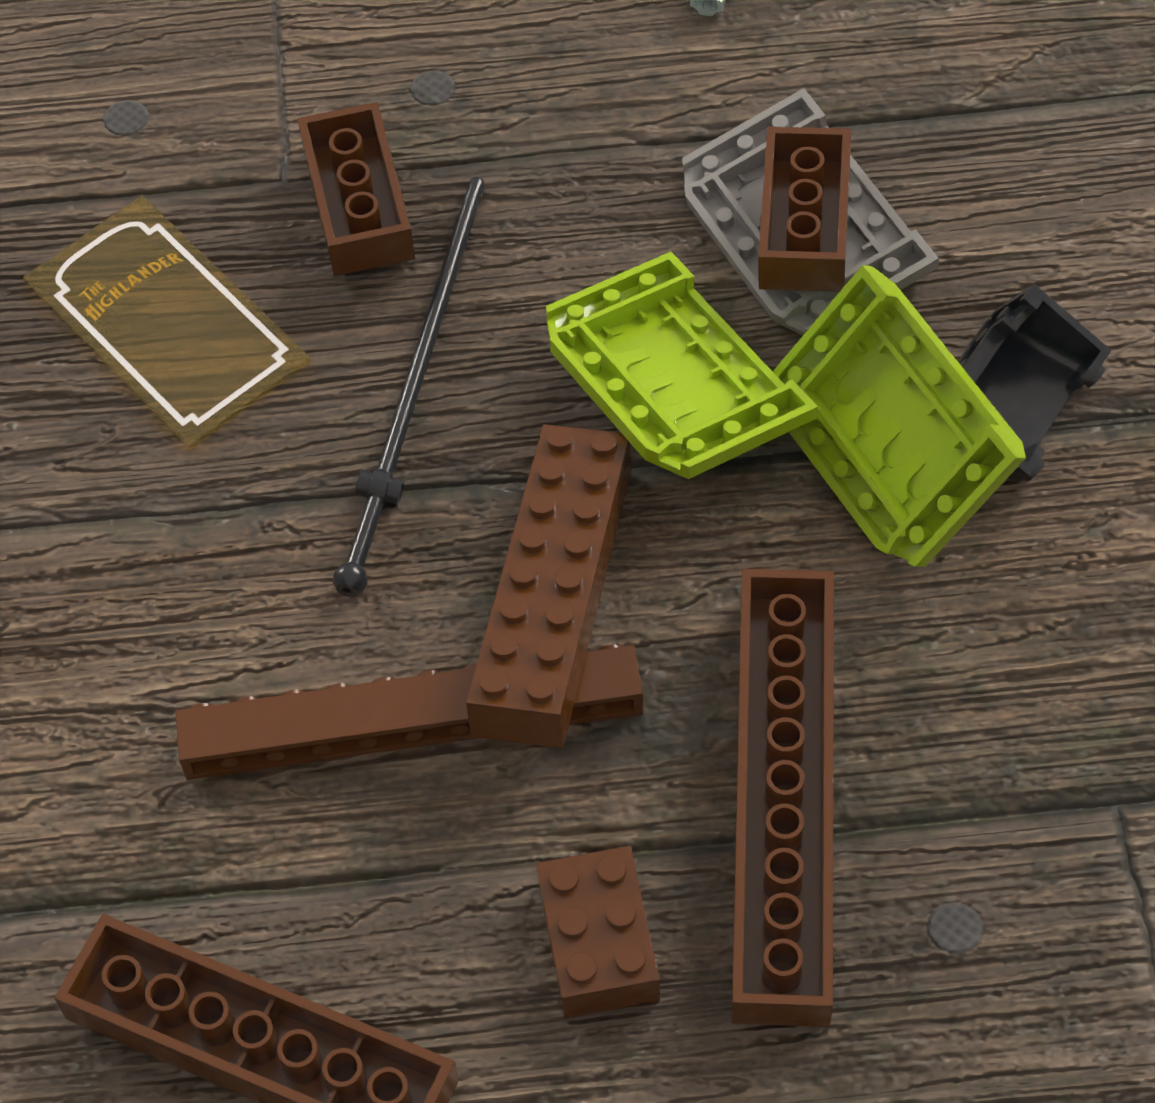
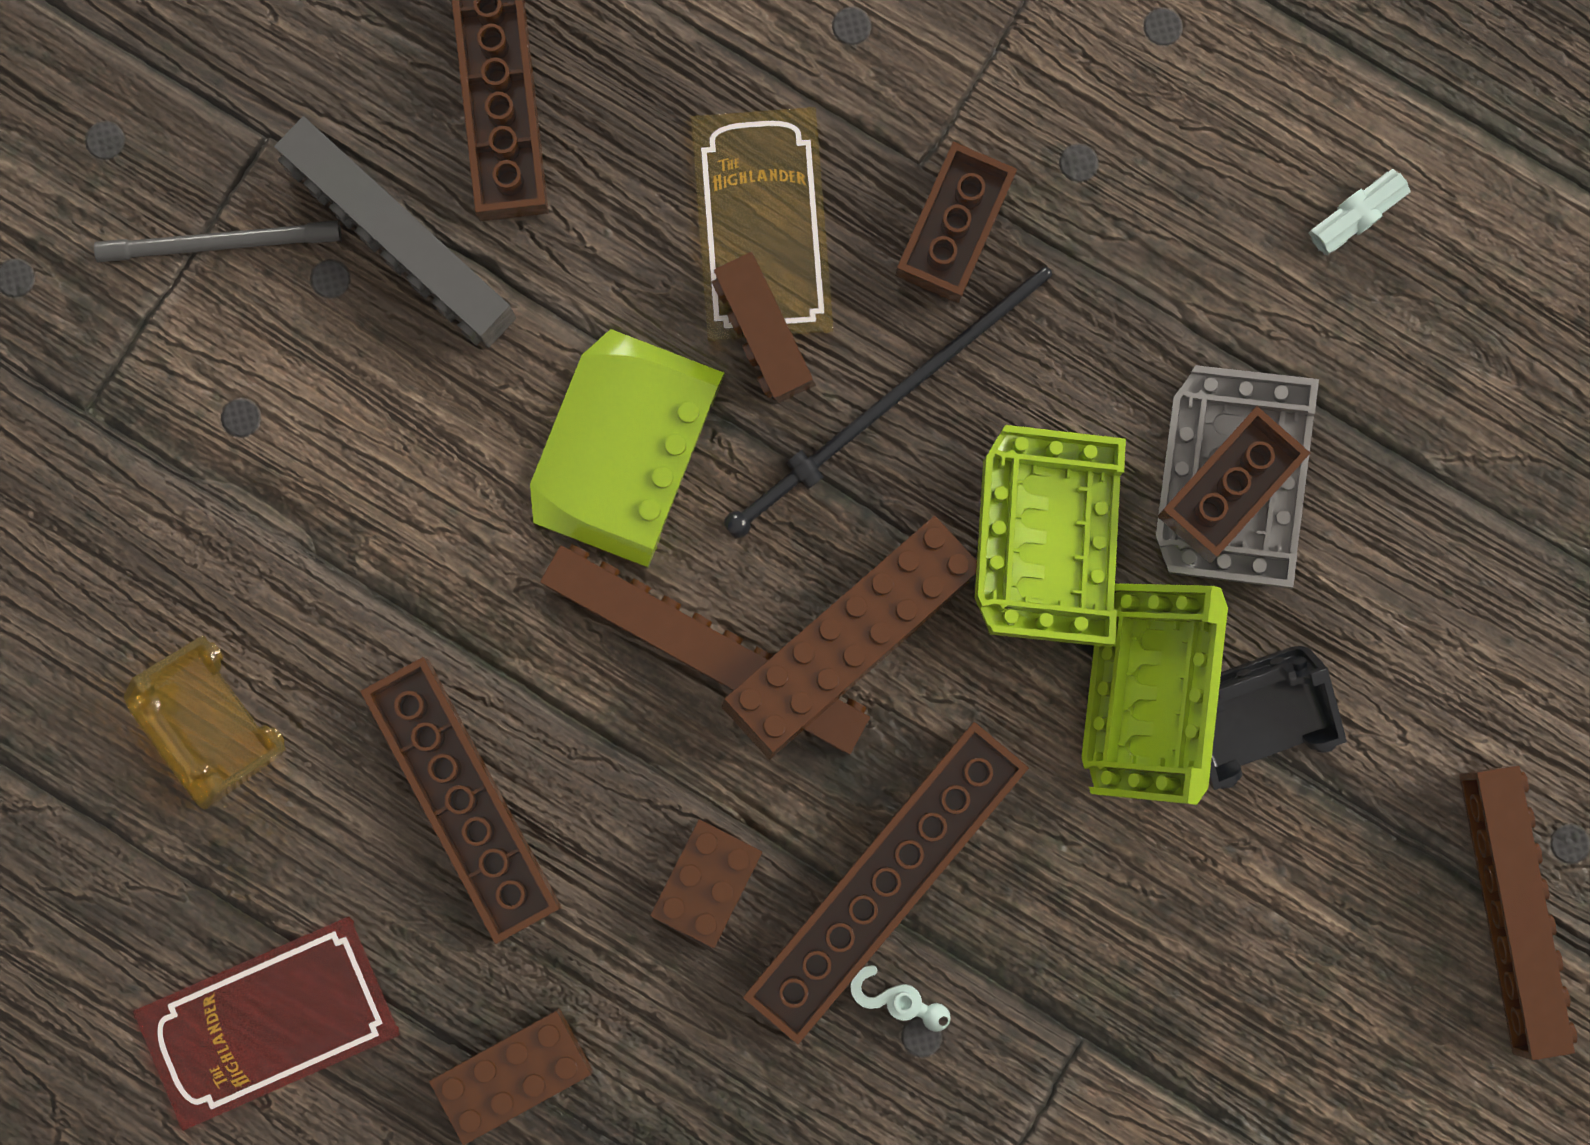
camera: 30 degrees right, 25 degrees up
(172, 595) = (622, 445): none -> lime slope
(237, 381) = (764, 327): none -> reddish brown brick
(902, 900) = (901, 1001): none -> light aqua piece

